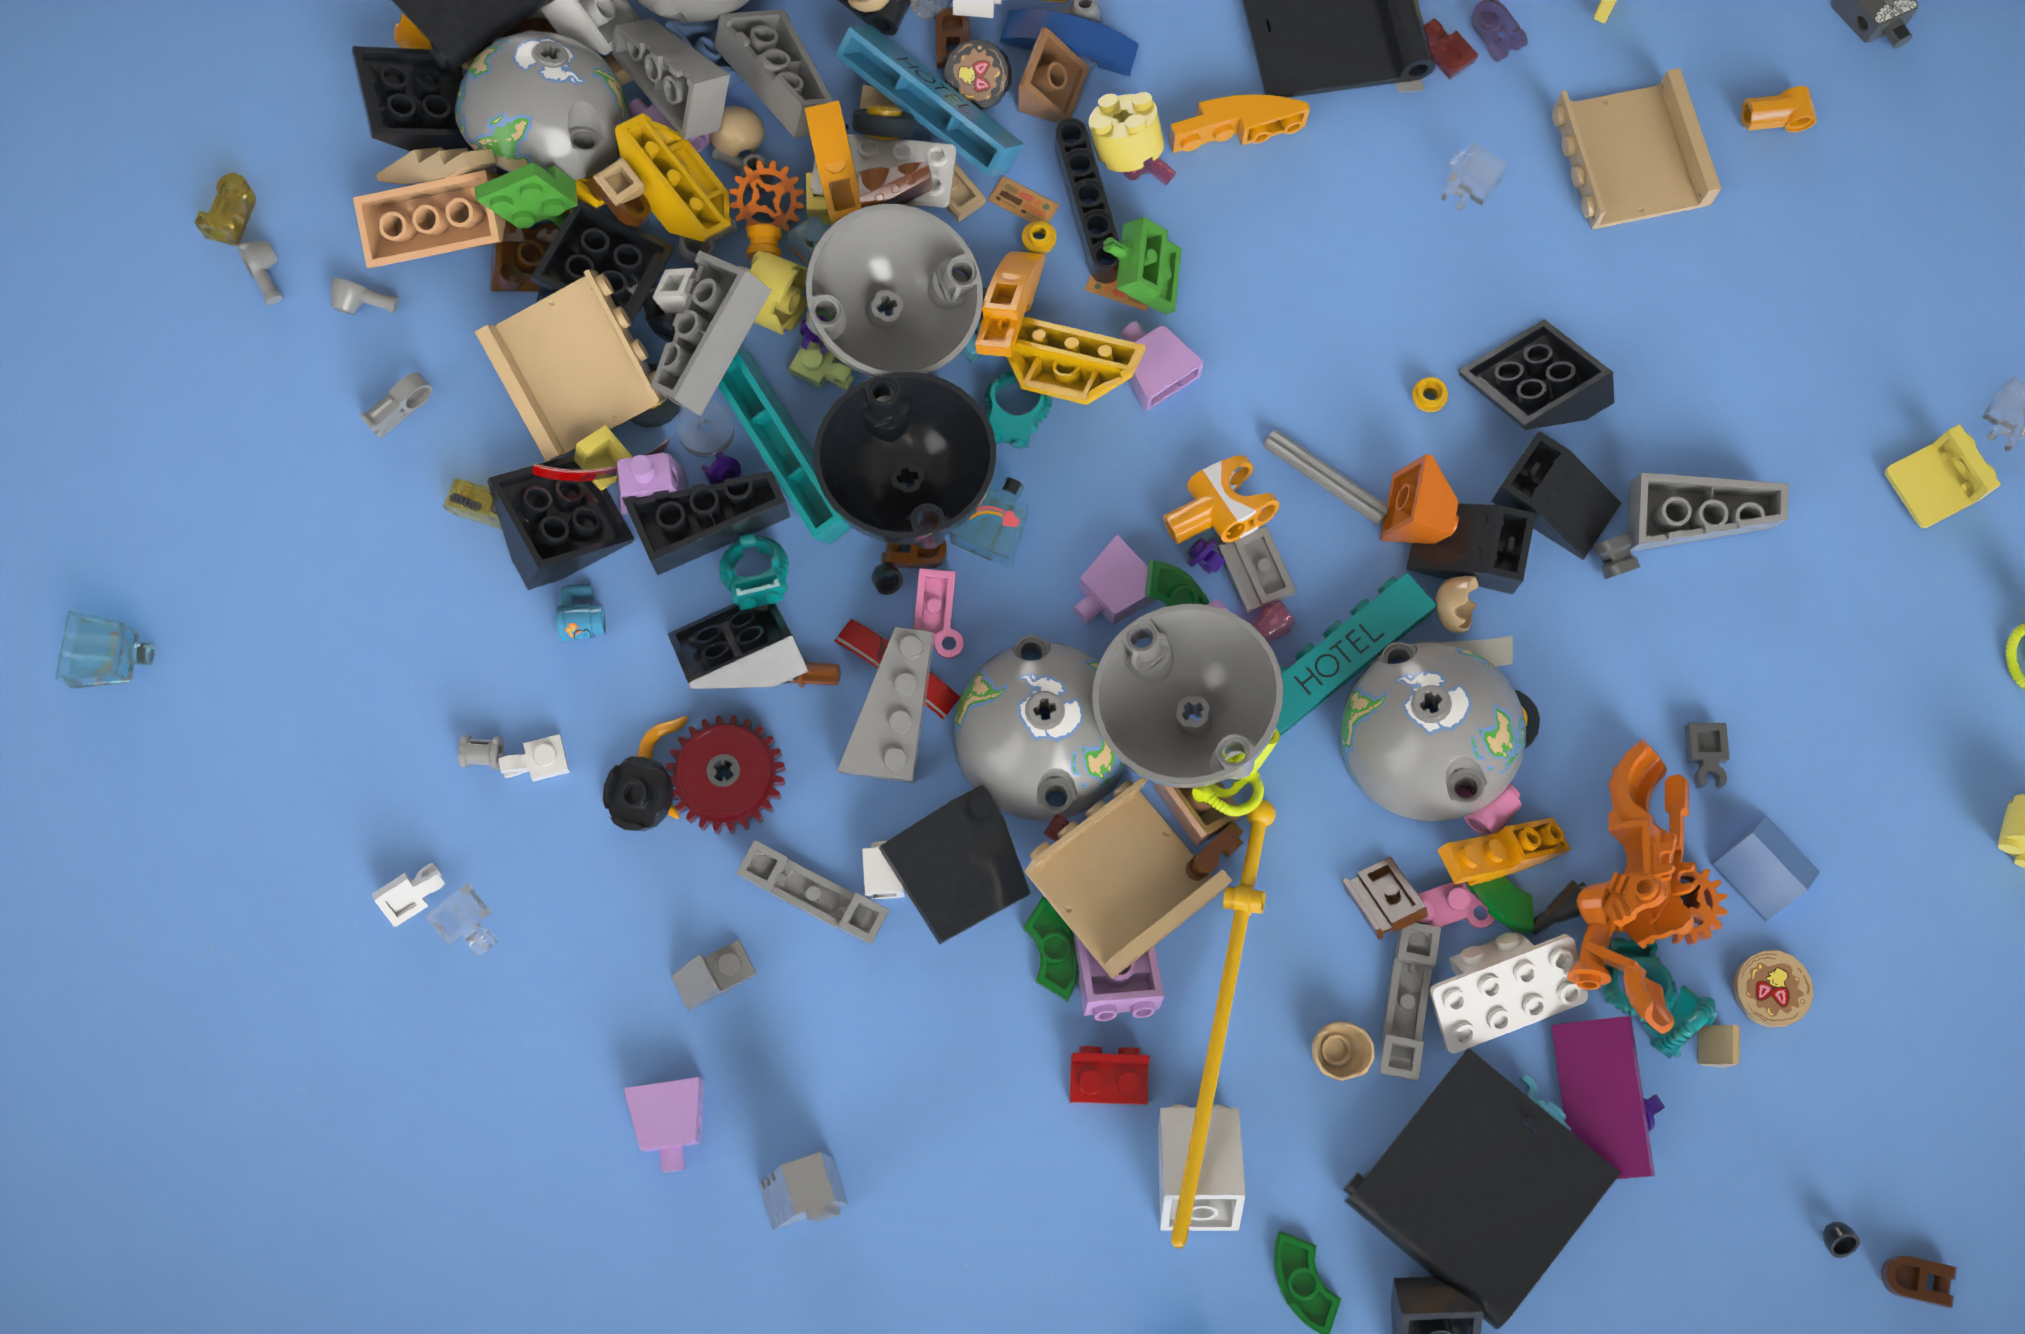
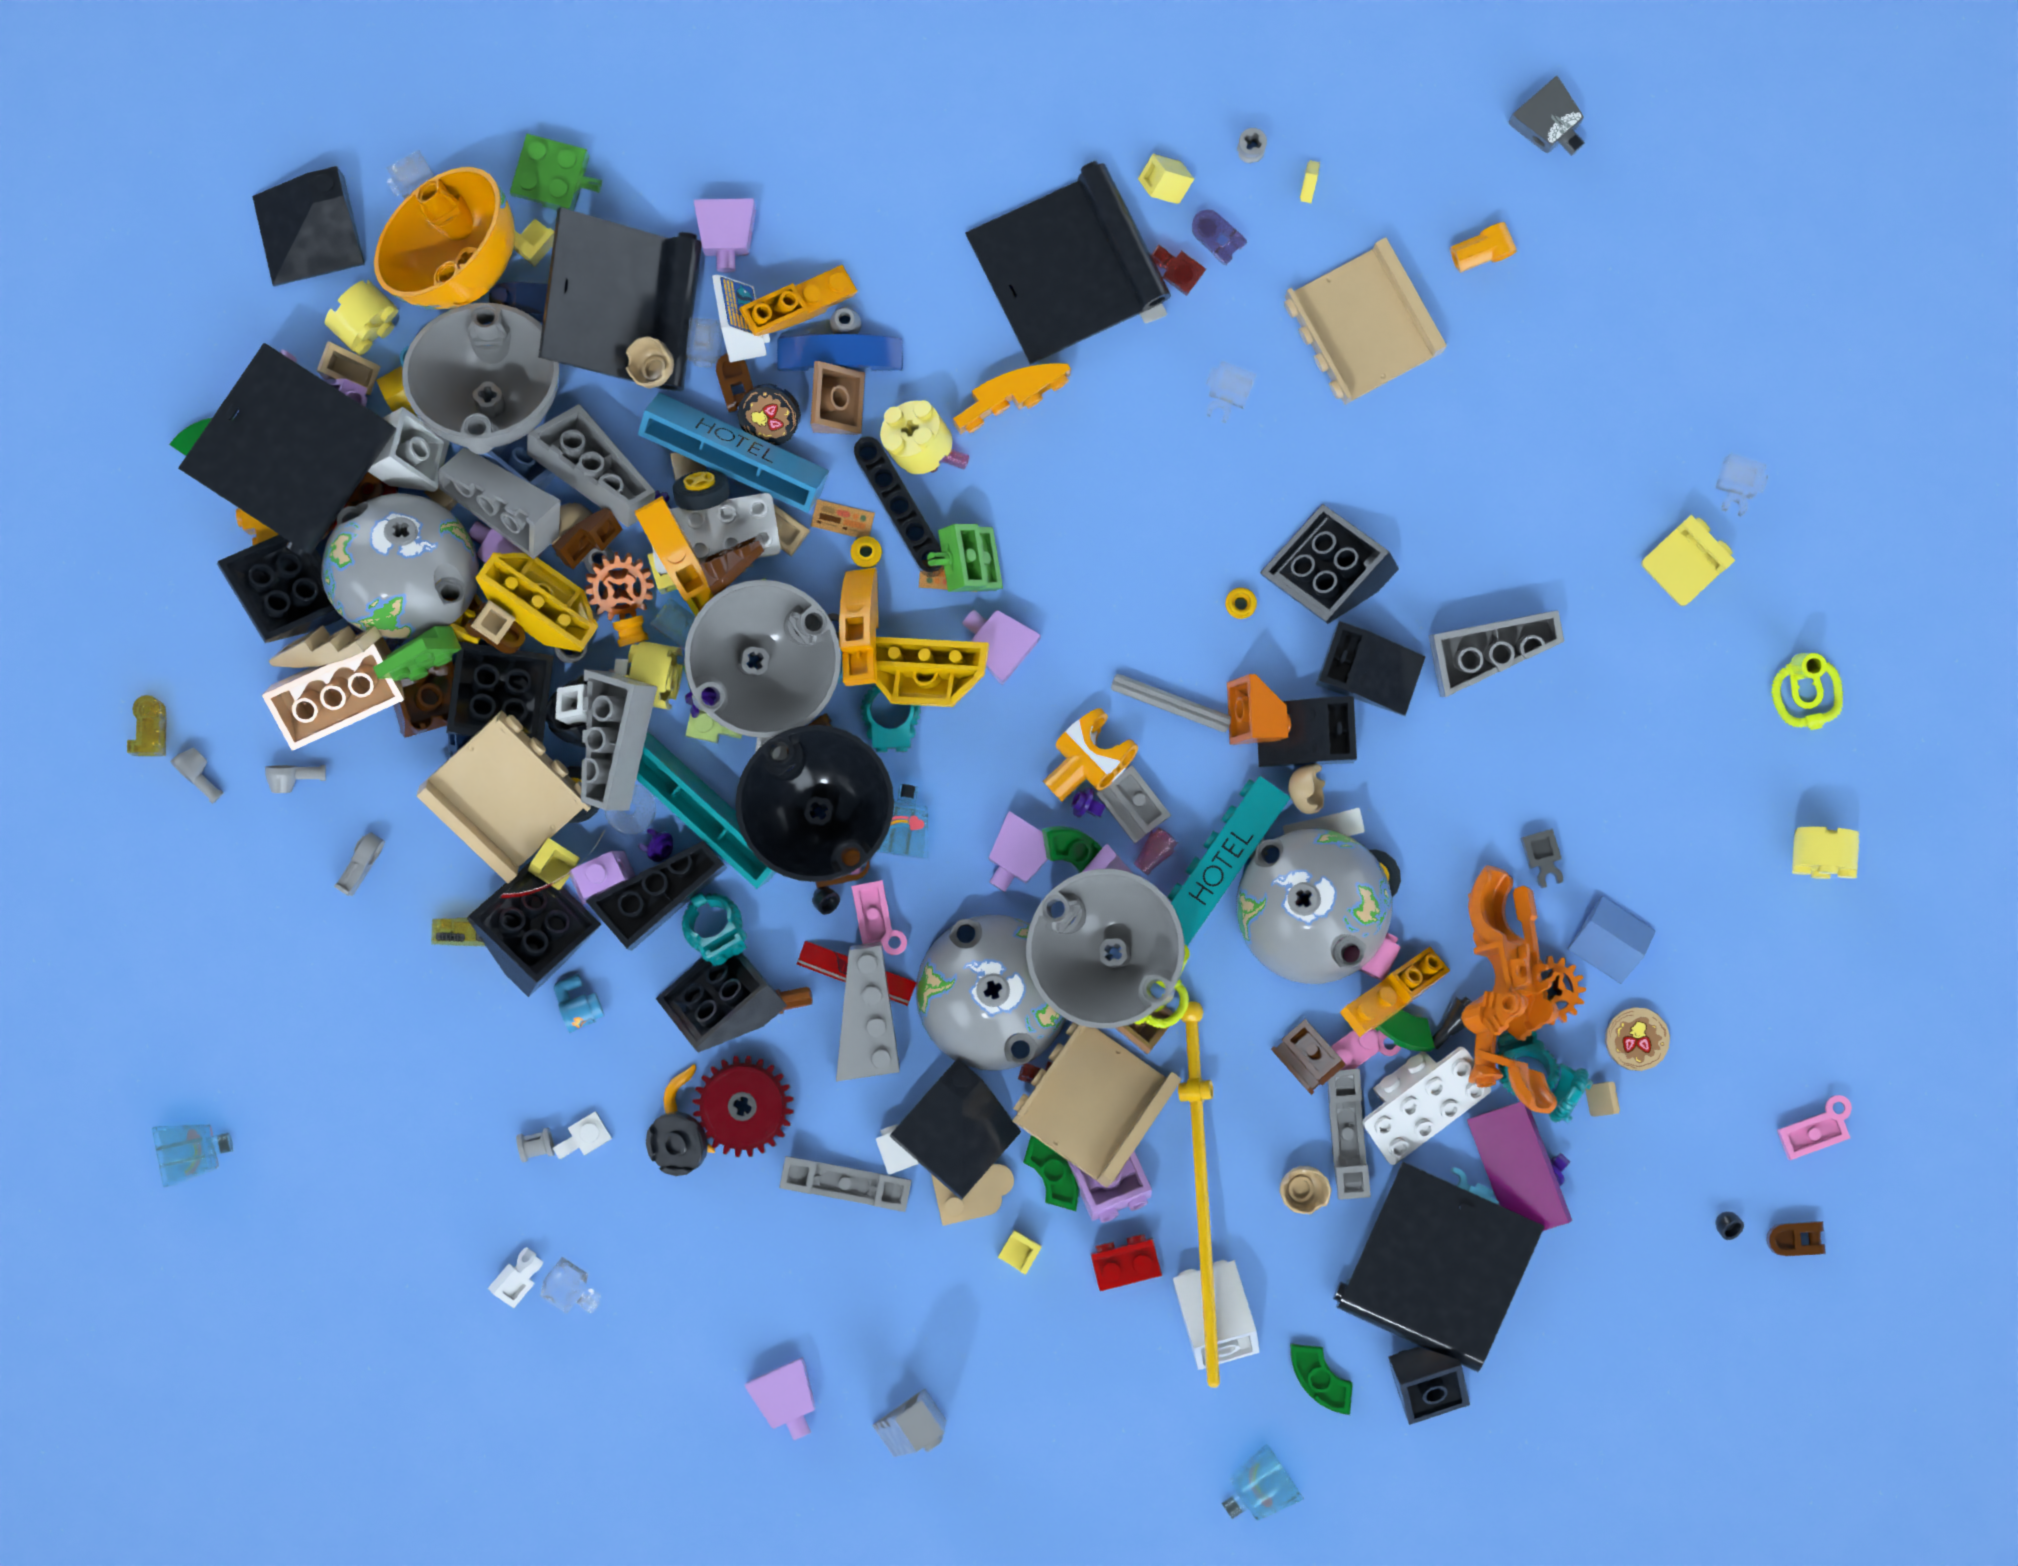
camera: 15 degrees left, 10 degrees up
(713, 975) = (784, 1271): light grey slope -> none
(748, 135) = (591, 532): none -> reddish brown slope
(958, 957) = (980, 1201): none -> tan plate
(990, 1027) = (1020, 1251): none -> light yellow panel
(1208, 858) = (1156, 1066): reddish brown plate -> none
(1616, 556) = (1430, 707): dark grey wheel -> none
(1969, 1156) = (1816, 1131): none -> bright pink hinge

